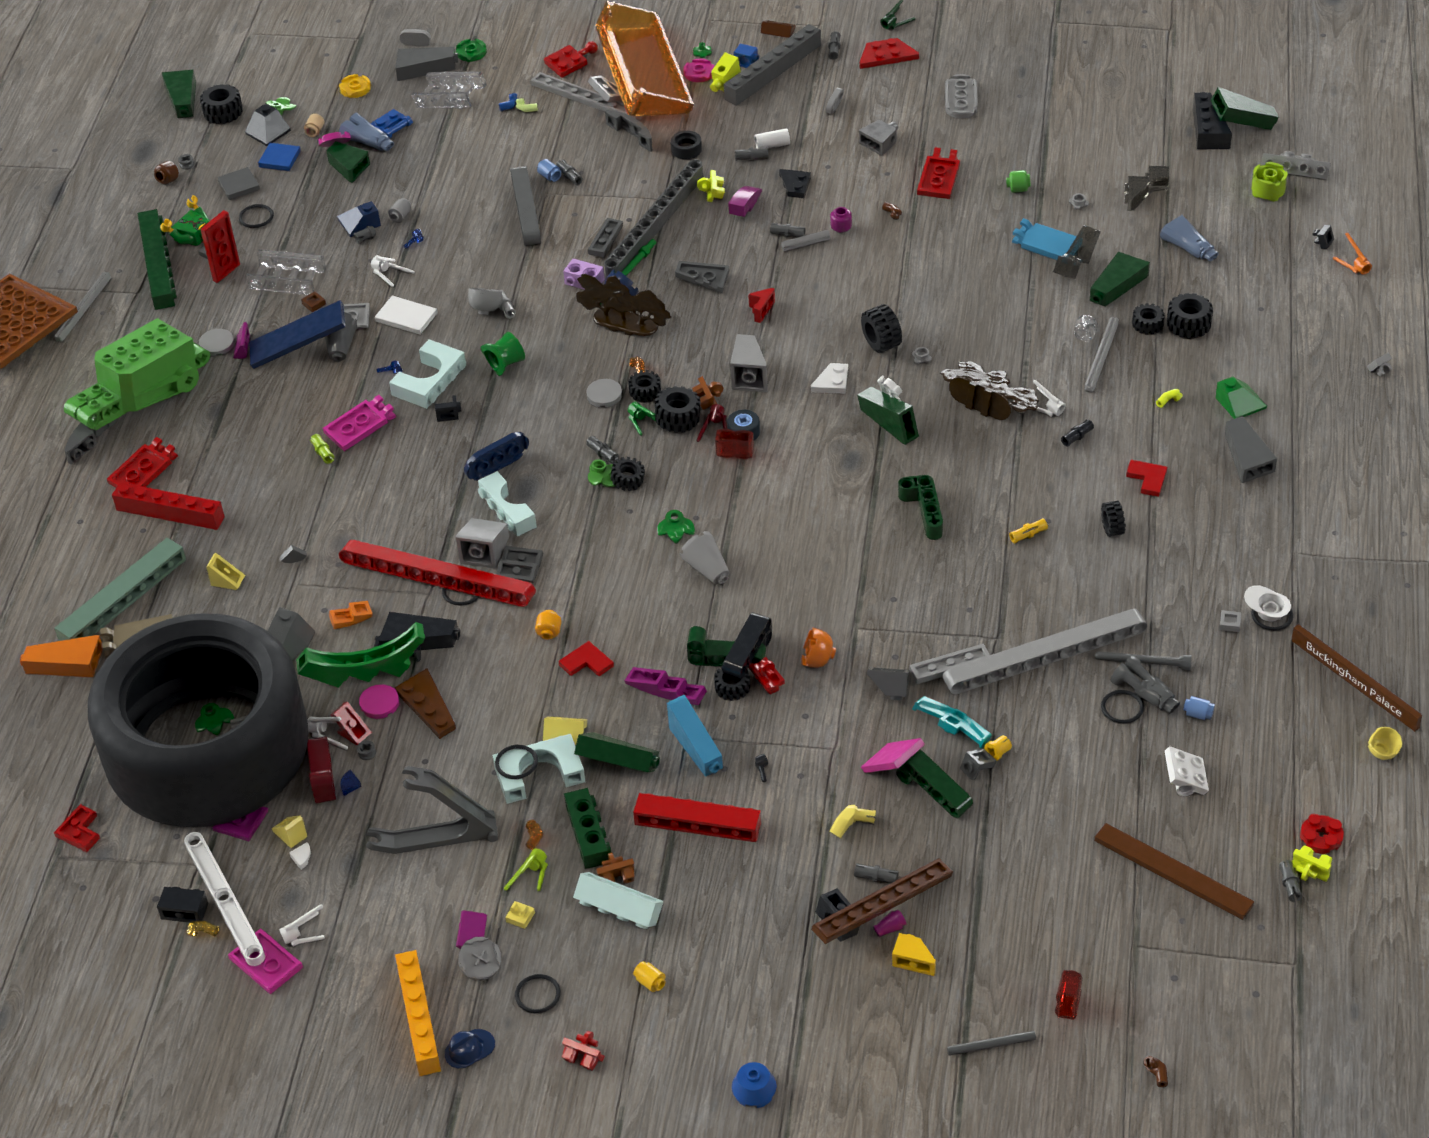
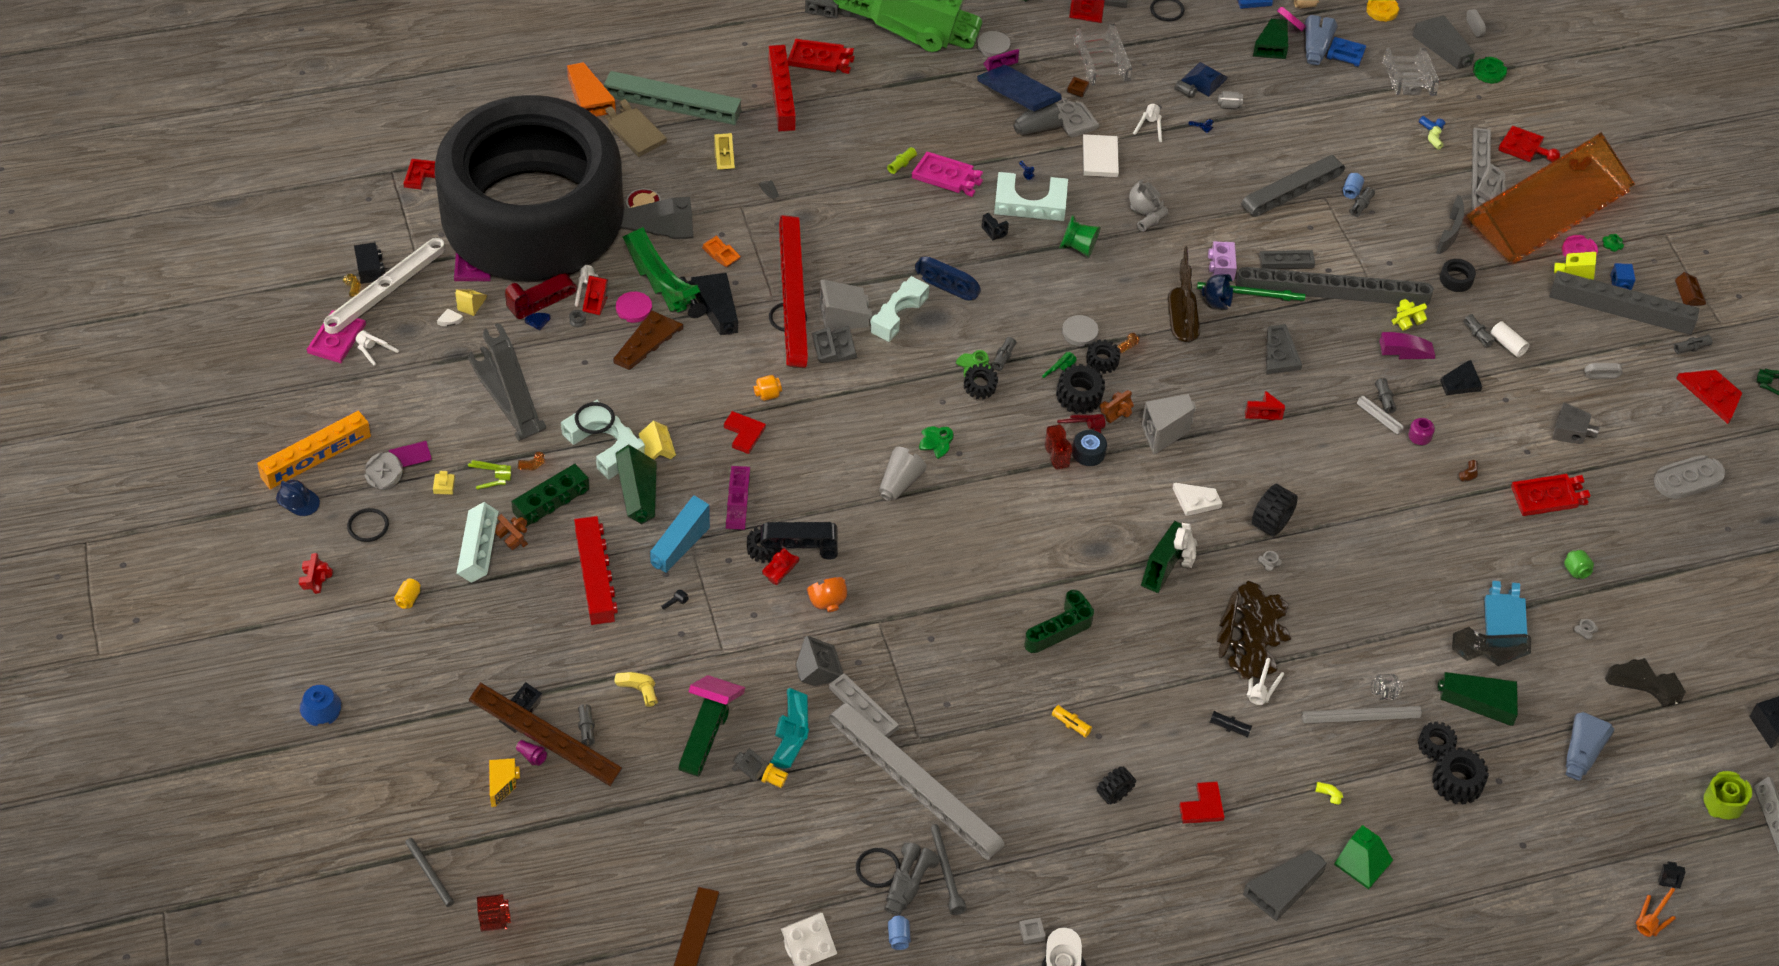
camera: 60 degrees right, 5 degrees up
(712, 652) = (789, 511): dark green beam -> none

